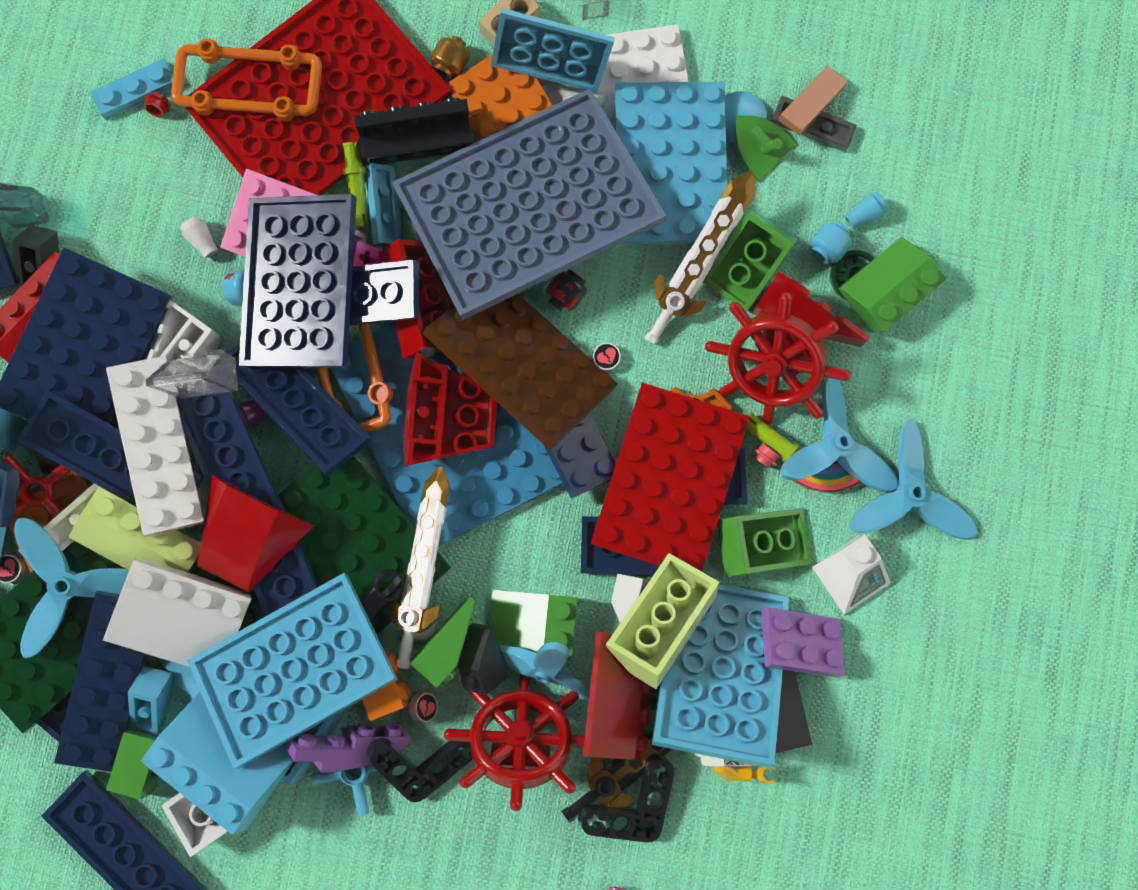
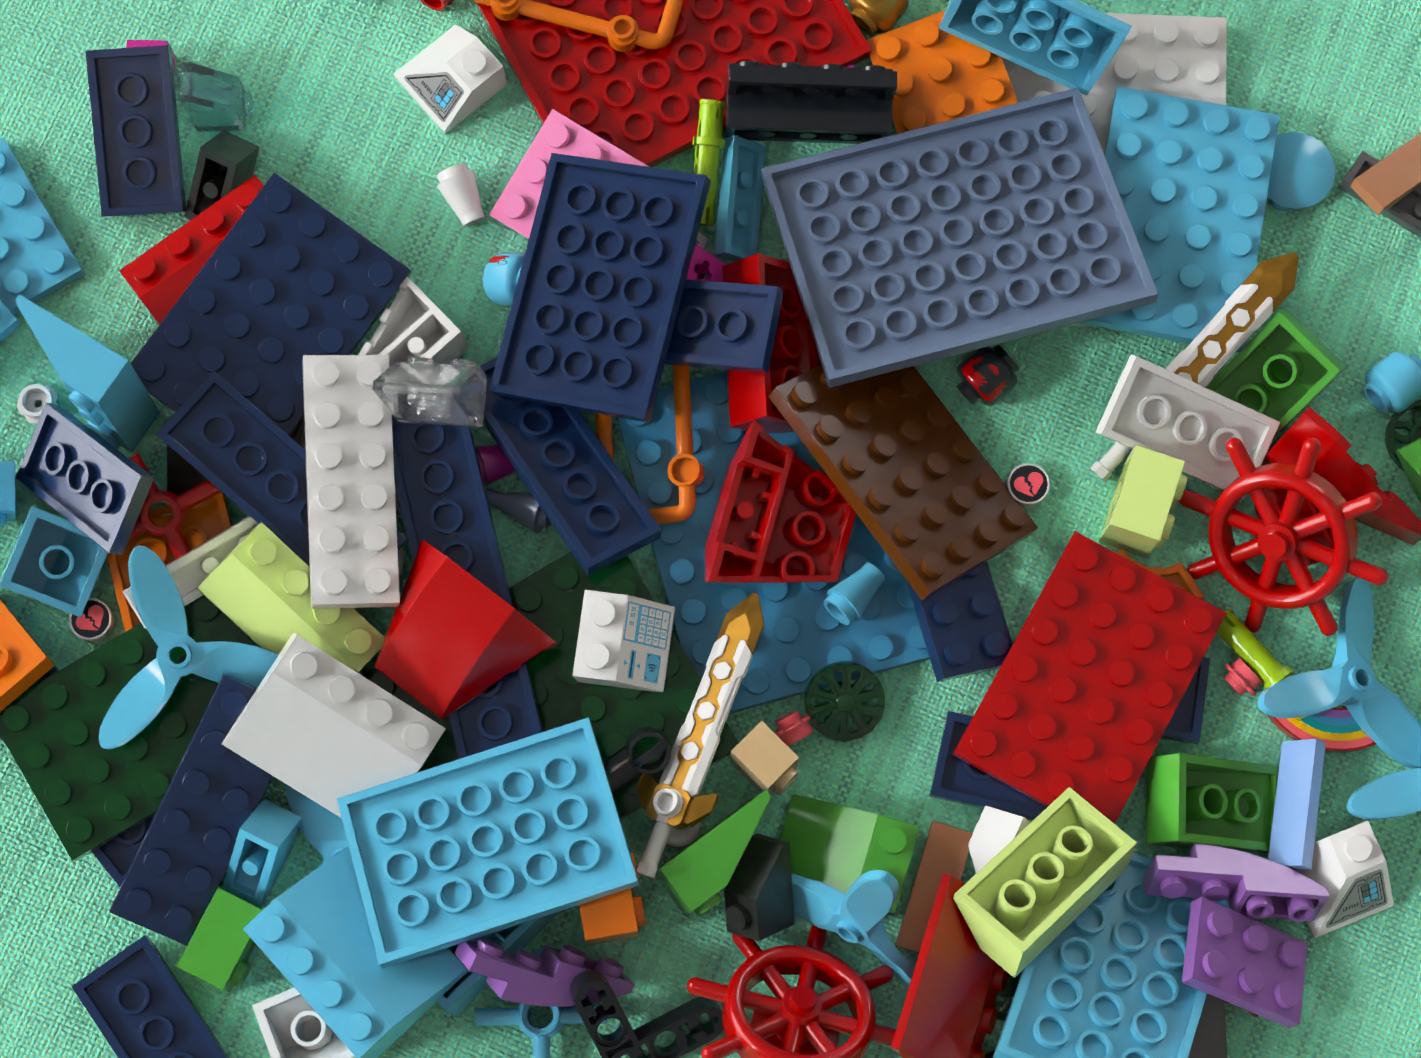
camera: 15 degrees right, 5 degrees down
(179, 160) = (452, 77): none -> white slope
(274, 437) = (520, 507): none -> sand blue cone
(358, 516) = (623, 641): none -> white slope
(423, 707) = (659, 944): tile -> none
(468, 574) = (765, 760): none -> tan brick
(483, 547) = (793, 727): none -> coral plate
(505, 453) = (852, 595): none -> medium azure cone
(513, 523) = (844, 701): none -> dark green wheel
(596, 617) = (944, 853): none -> nougat tile
(682, 354) = (1142, 502): none -> yellowish green brick
(698, 297) = (1183, 422): none -> white plate
(761, 143) = (1318, 216): bright green shield -> none
(796, 589) = (1243, 879): none -> medium lavender slope
(817, 532) = (1297, 803): none -> light blue tile

